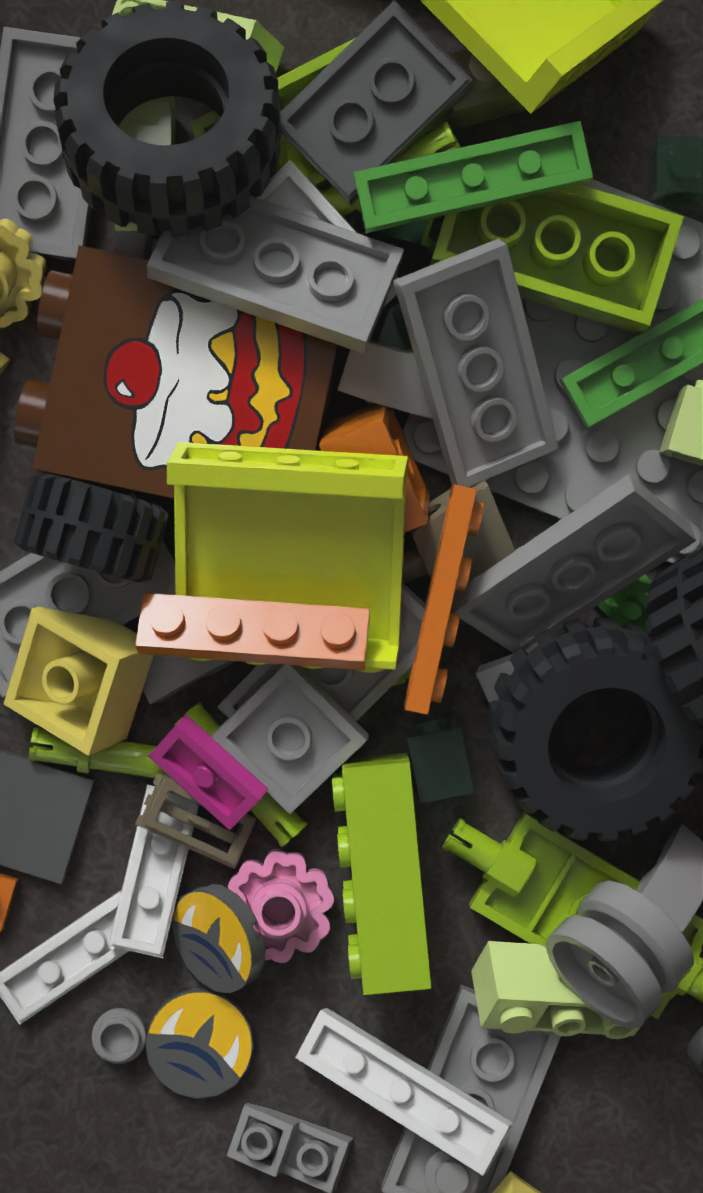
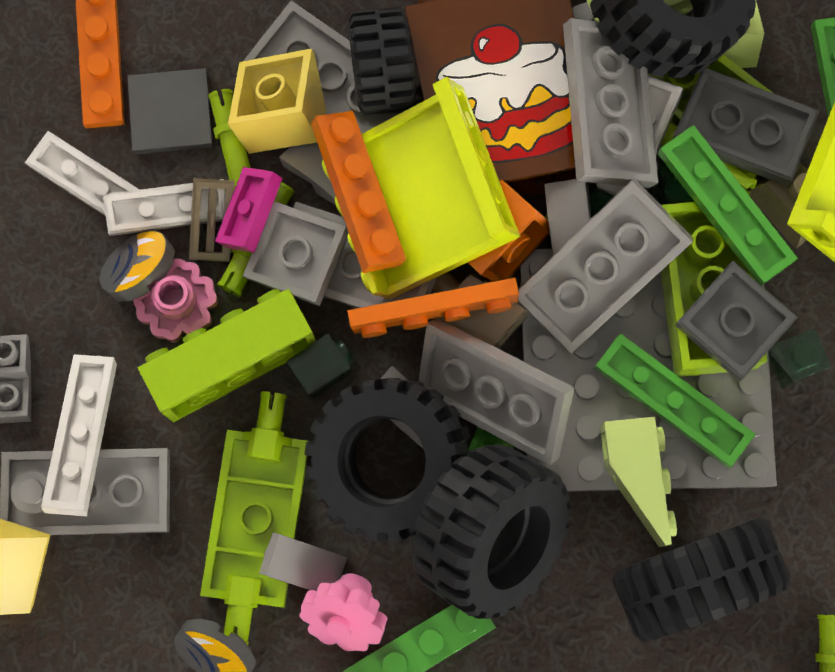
camera: 65 degrees right, 10 degrees down
(119, 1035) = (42, 231): light grey plate -> none
(199, 1043) = (58, 287): tile -> none
(524, 993) = (188, 507): yellowish green slope -> none
(620, 232) = (736, 321): none -> dark grey tile
(620, 954) = (237, 534): light grey wheel -> none

